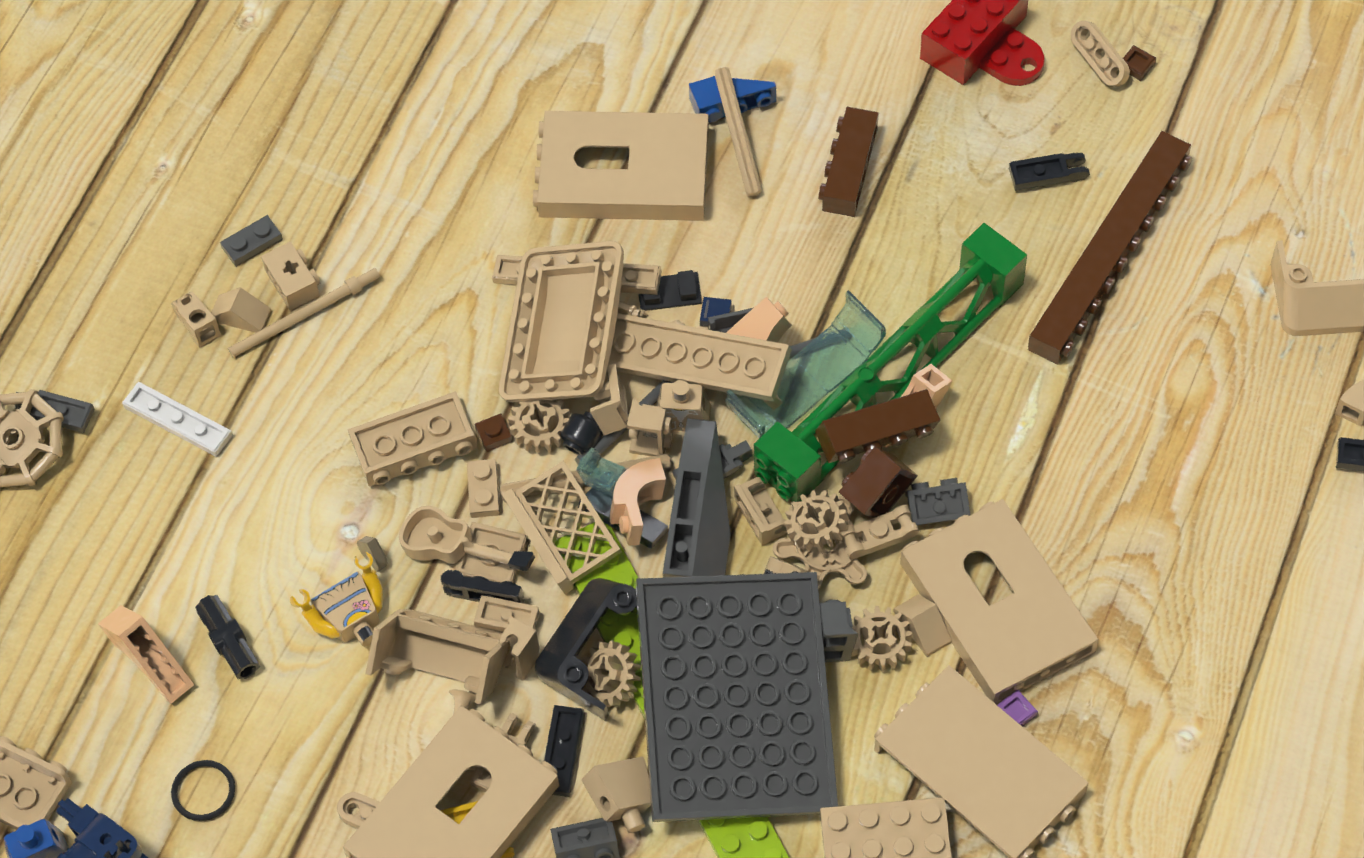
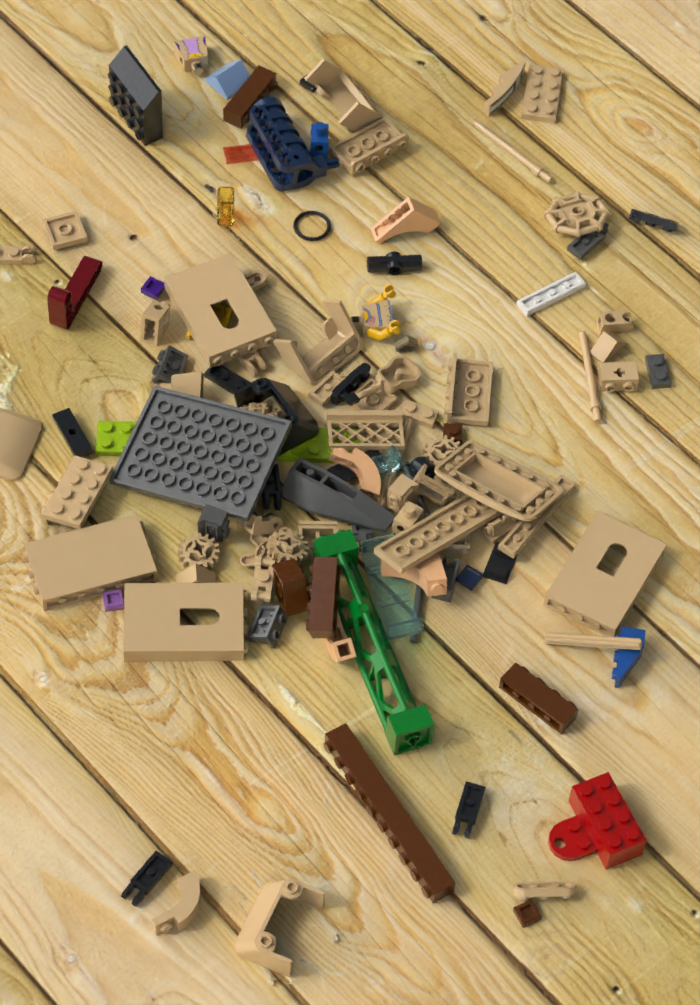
camera: 110 degrees right, 5 degrees down
(523, 646) = (300, 378): tan hinge -> none

